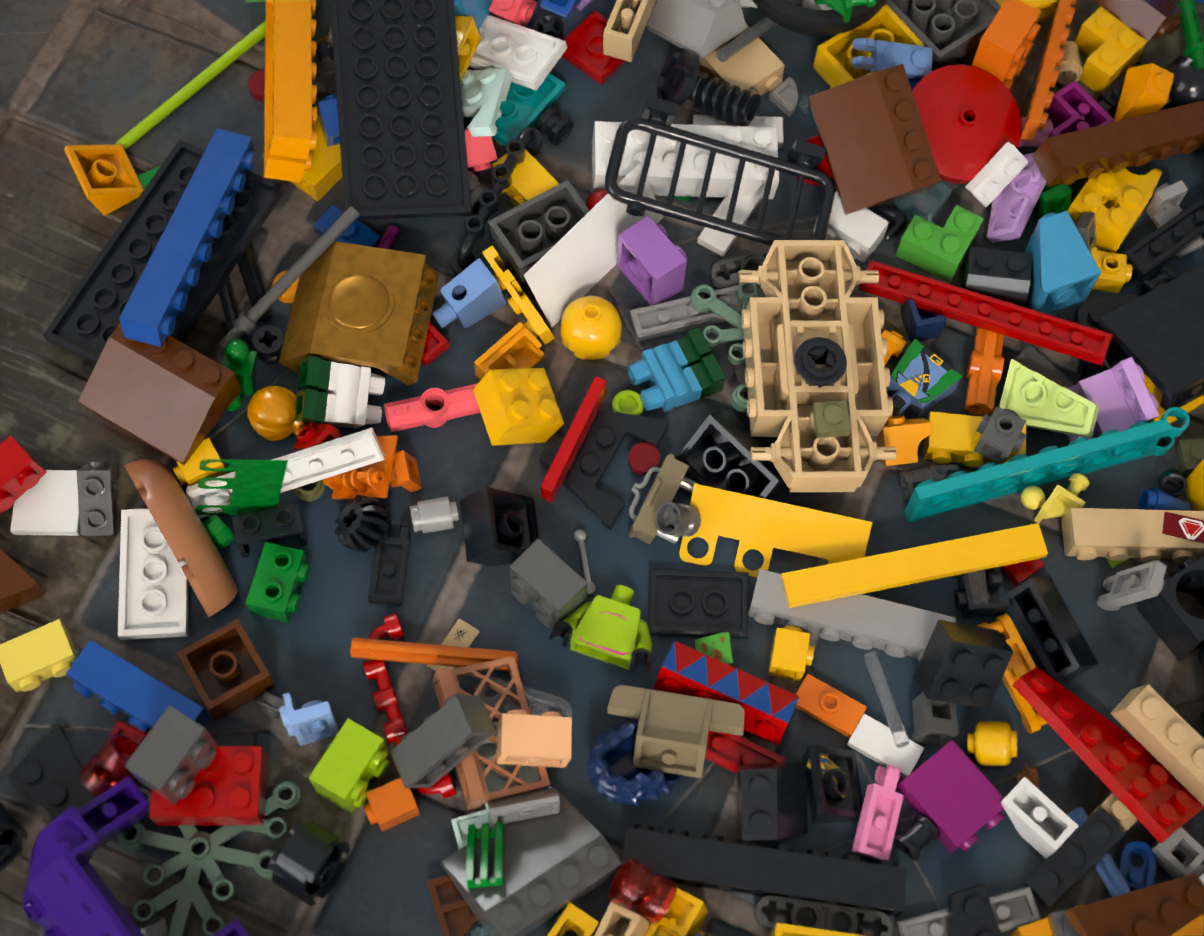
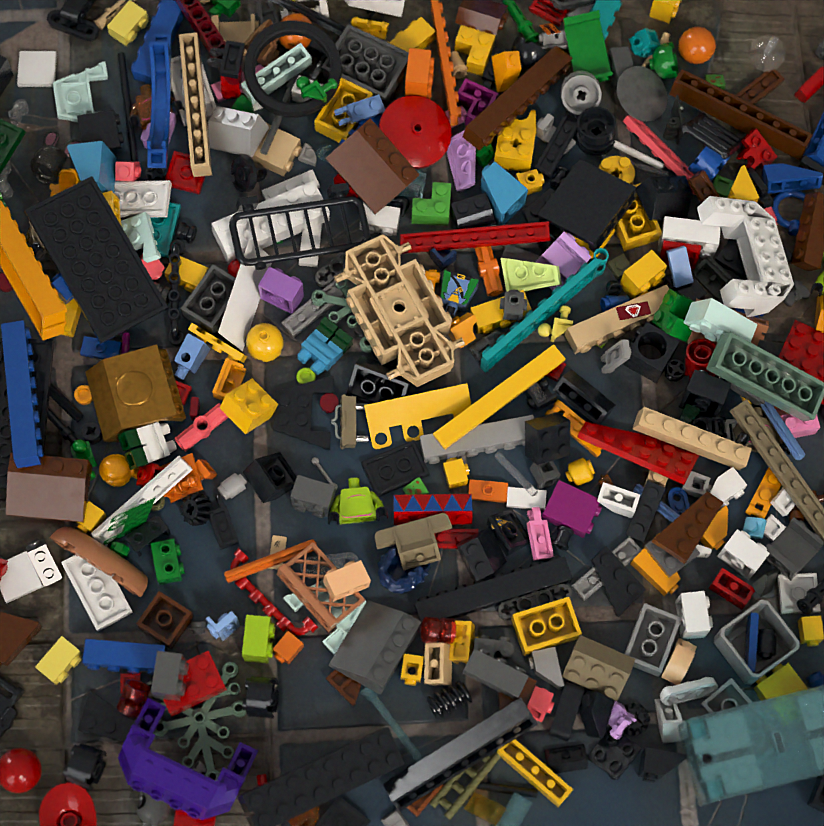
camera: 25 degrees left, 5 degrees up
(245, 322) = (74, 427): dark grey bar -> none
(438, 373) = (194, 408): none -> dark red tile
(443, 741) = (301, 603): dark grey brick -> none
(485, 834) = (344, 639): green tile -> none
(525, 806) = (357, 616): light grey slope -> none
(573, 439) = (288, 411): red tile -> none
(677, 519) = (363, 429): dark grey wheel -> none
(725, 101) = (277, 178): black piece -> none
(814, 349) = (396, 304): black gear -> none
(831, 419) = (422, 339): olive plate -> none
(997, 174) = (447, 153): white plate -> none
(1087, 228) = (509, 165): dark grey plate -> none

